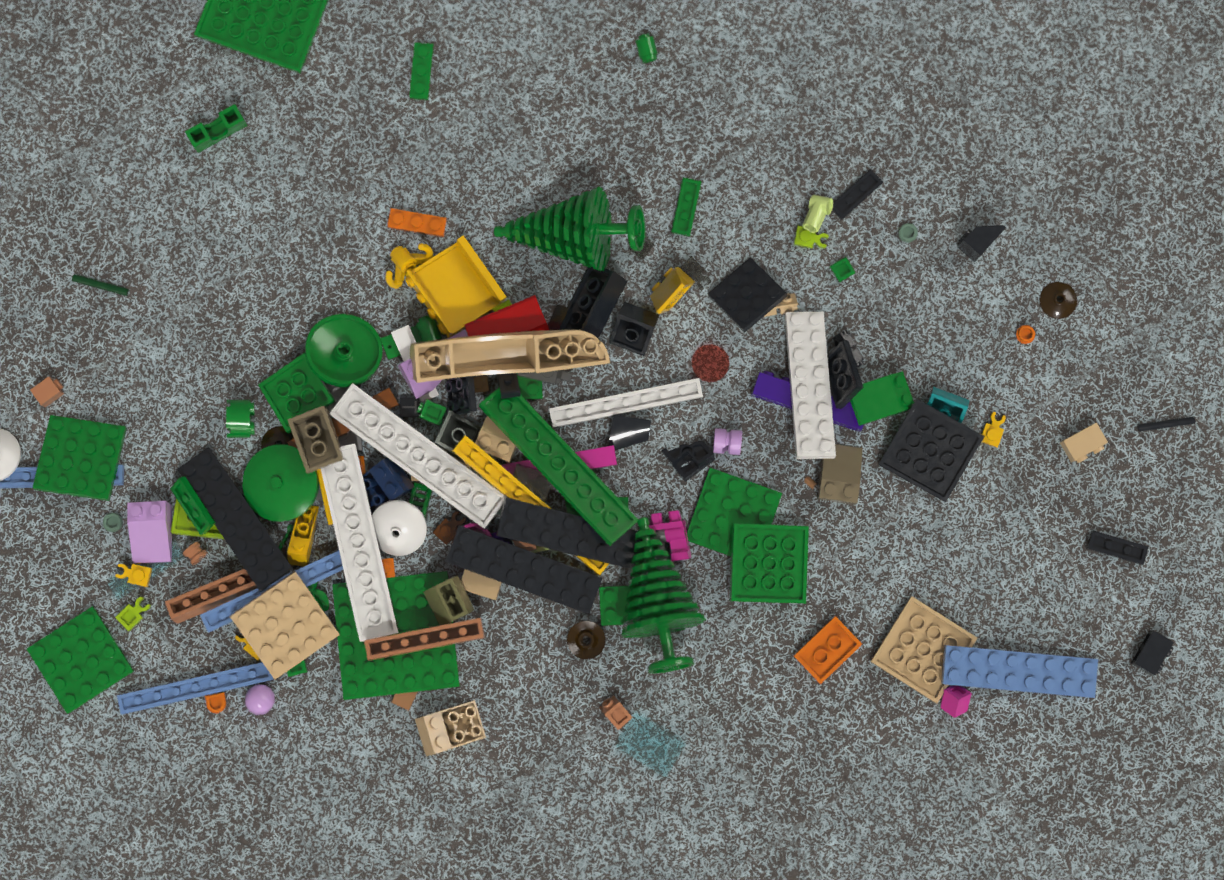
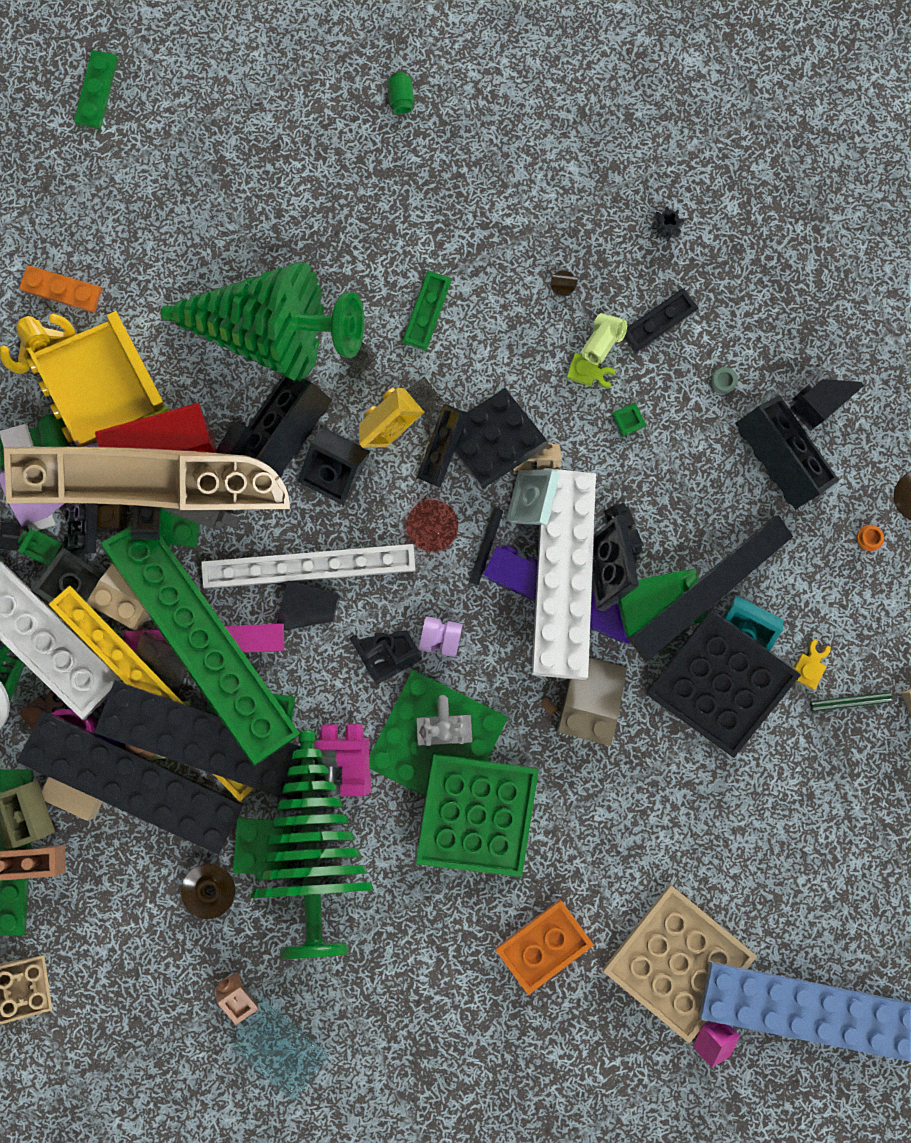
camera: 10 degrees right, 0 degrees up
(711, 304) = (442, 445): none -> black tile
(738, 505) = (444, 728): none -> light grey piece
(751, 373) = (486, 546): none -> black bar
(780, 334) = (533, 497): none -> light aqua plate
(783, 175) = (563, 283): none -> dark brown plate
(857, 126) = (671, 229): none -> black gear
(915, 382) = (710, 588): none -> black tile
(958, 279) = (786, 452): none -> black slope
(1024, 453) = (853, 701): none -> dark green bar

